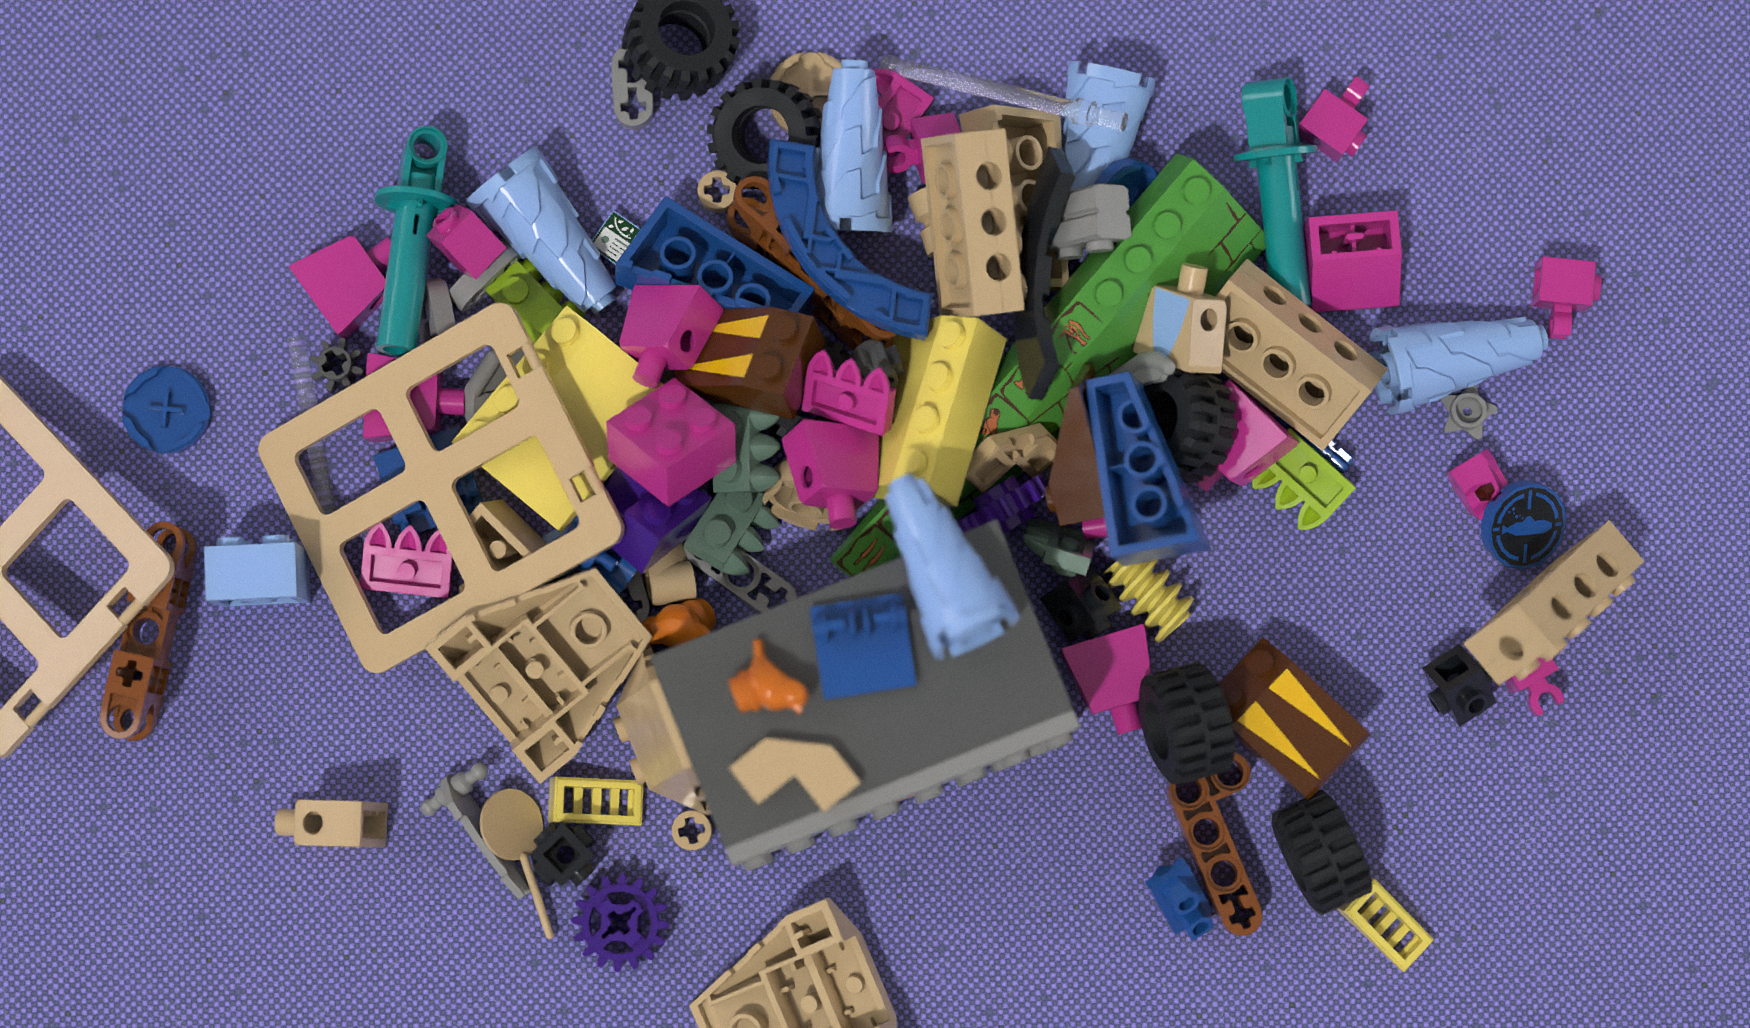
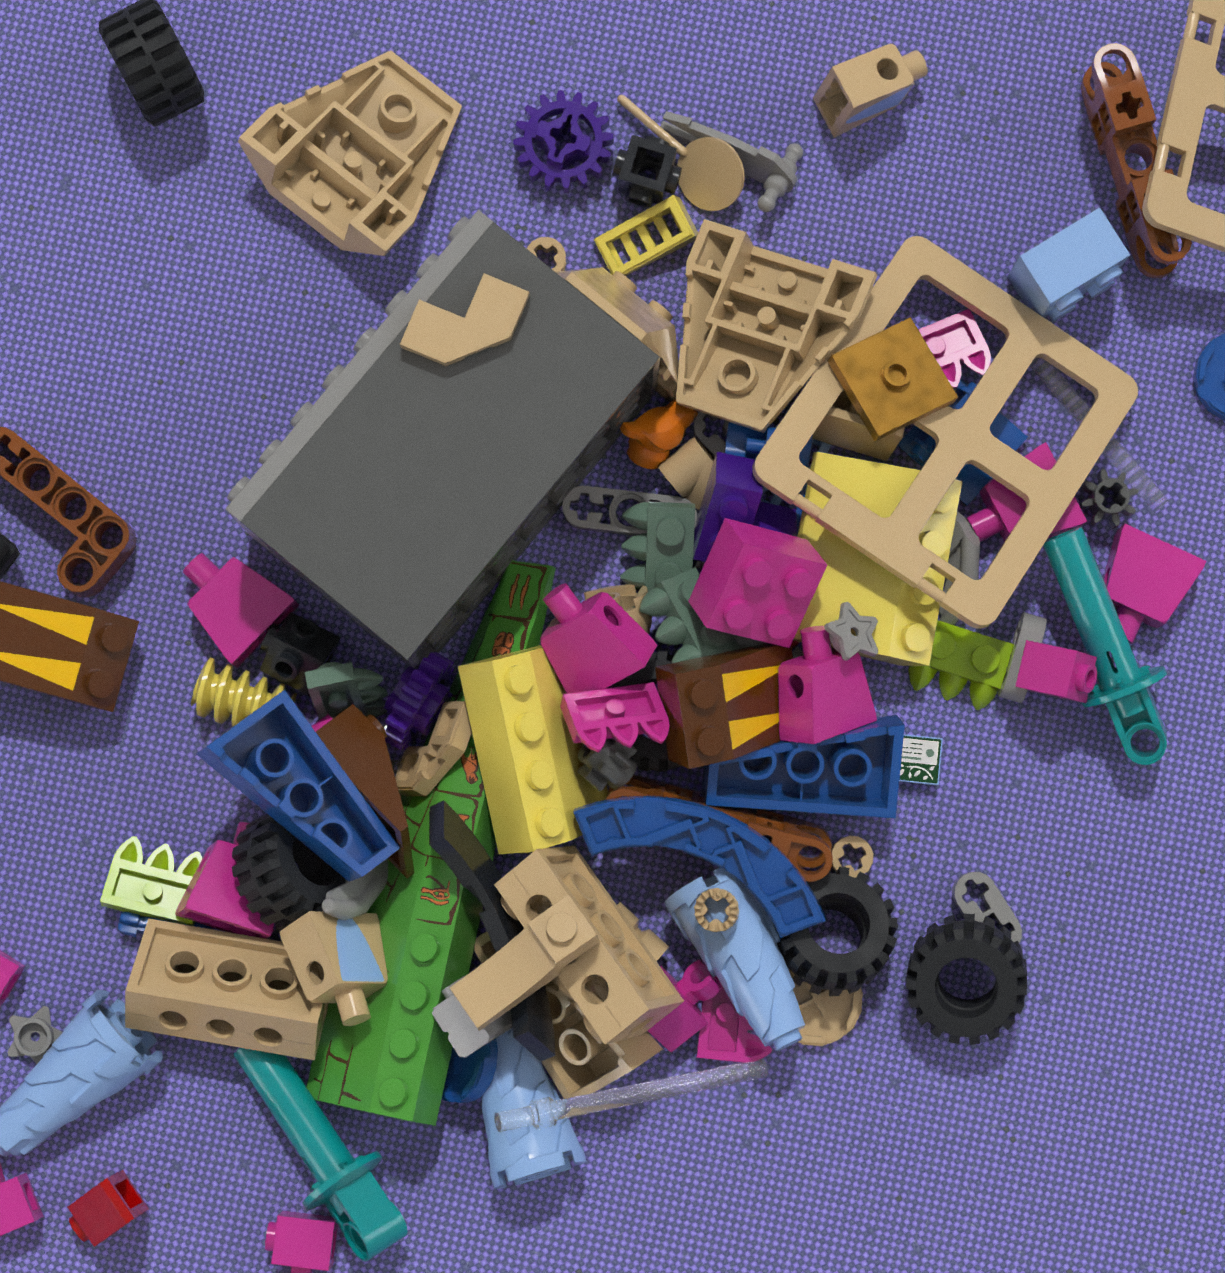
camera: 150 degrees right, 0 degrees up
(436, 311) = (1045, 595): light grey beam -> none
(462, 552) = (892, 379): none -> pearl gold plate
(542, 225) = (994, 729): light blue cone -> none
(626, 359) = (841, 635): none -> light grey plate
(766, 686) = (535, 383): orange animal -> none
(861, 182) = (702, 909): none -> tan bush
(863, 646) = (467, 471): blue hinge -> none
(948, 579) = (426, 577): light blue cone -> none
(1034, 225) = (525, 963): none -> tan slope
(1181, 899) = (65, 434): blue hips -> none
(1186, 723) = (138, 586): black tyre -> none
(1353, 261) = (213, 1117): dark pink slope -> none
(1479, 235) = (106, 1209): none -> red slope

